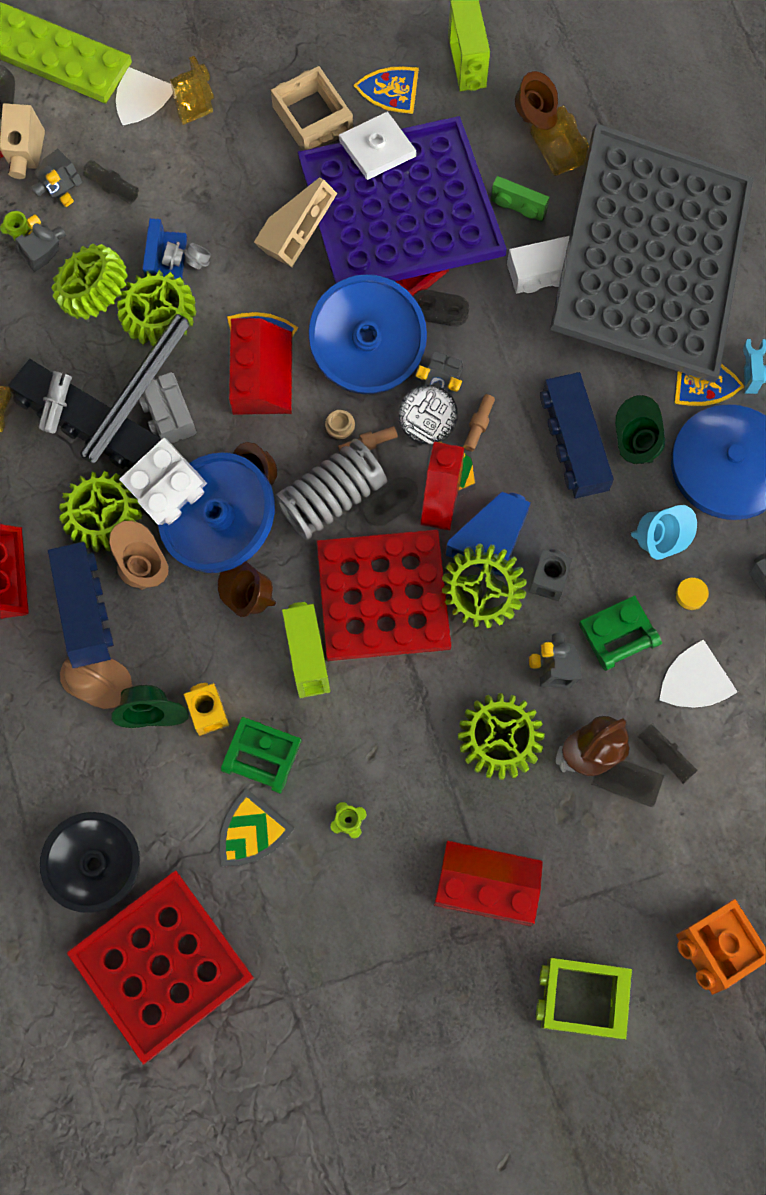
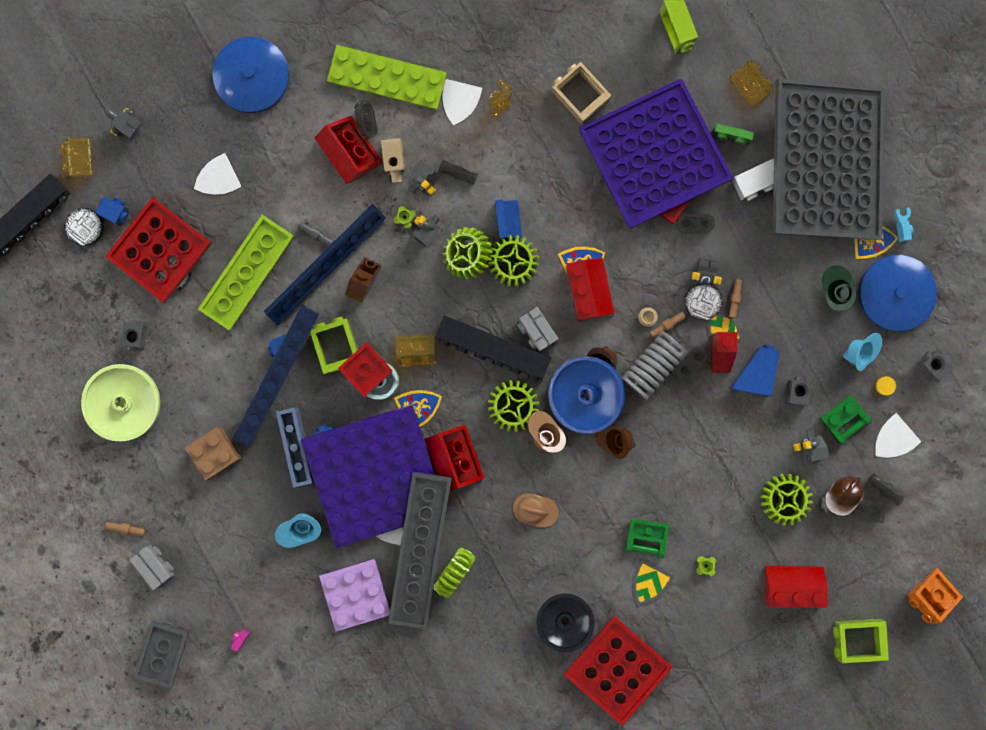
camera: 10 degrees left, 15 degrees up
(54, 402) = (470, 345): light grey axle -> none
(79, 604) = (519, 471): dark blue brick -> none
(134, 389) = (518, 324): axle -> none
(147, 707) = (572, 522): dark green piece -> none
(164, 482) = (552, 384): white plate -> none
(172, 255) = (514, 220): light grey plate -> none
(197, 256) = (530, 217): light grey plate -> none
(208, 721) = (614, 523): yellow brick -> none
(293, 224) = (589, 189): tan slope -> none
(306, 649) = (662, 472): lime window -> none
(367, 334) = (654, 255): blue dish -> none
(372, 640) = (715, 448): red piece -> none
(377, 145) = (632, 114): white plate -> none
(390, 88) = (628, 61): sticker -> none
(495, 587) = (771, 417): lime gear -> none
(537, 100) = (732, 59): reddish brown piece -> none
(576, 435) = (798, 296): dark blue brick -> none

